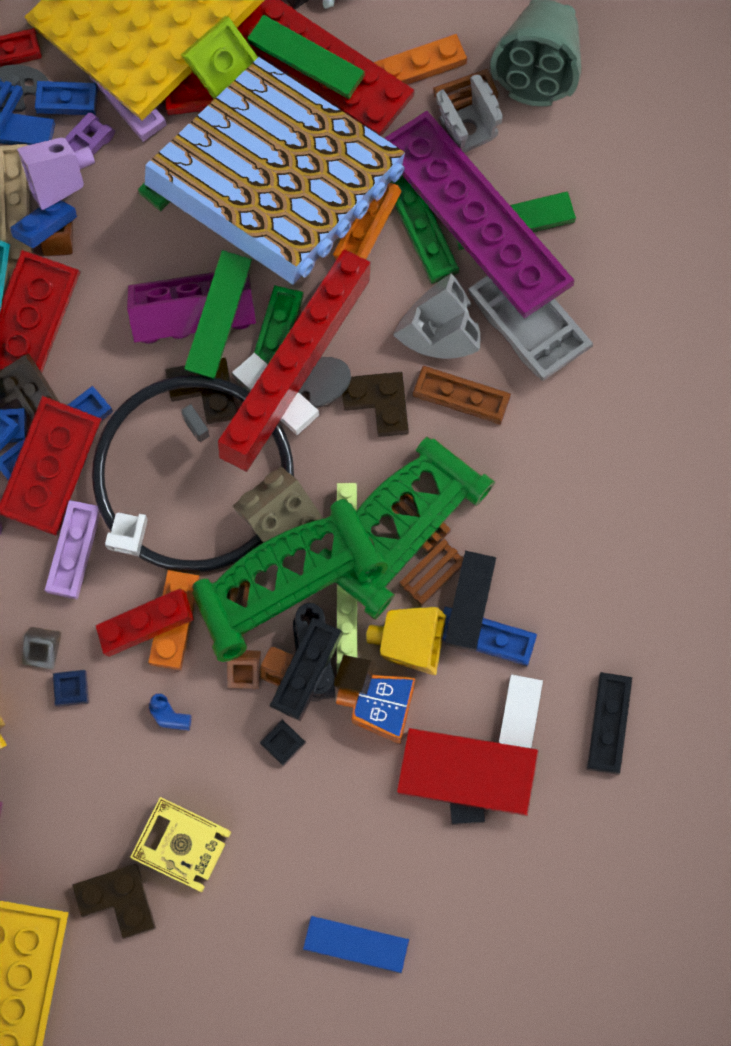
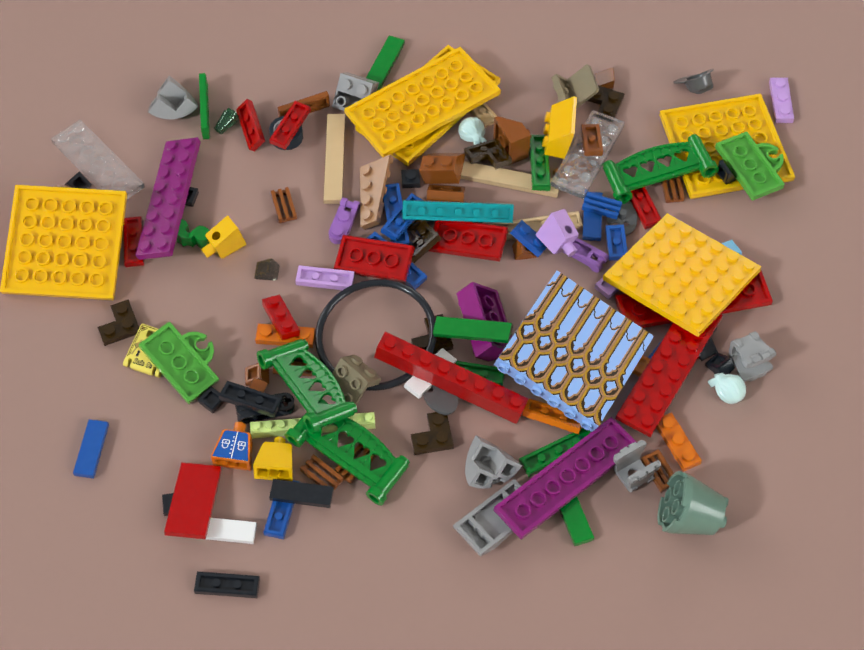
camera: 80 degrees right, 15 degrees down
(70, 688) = (242, 287): dark blue tile -> none
(127, 534) = (331, 301): white panel -> none
(165, 715) = (227, 336): blue arm -> none
(195, 423) = (402, 326): dark grey tile -> none
(211, 788) = (181, 360): none -> bright green plate
(219, 56) = (651, 314): lime tile -> none
(306, 56) = (660, 364): green tile -> none
(354, 674) = (249, 427): dark brown tile -> none
(461, 395) = (442, 483): dark orange tile -> none

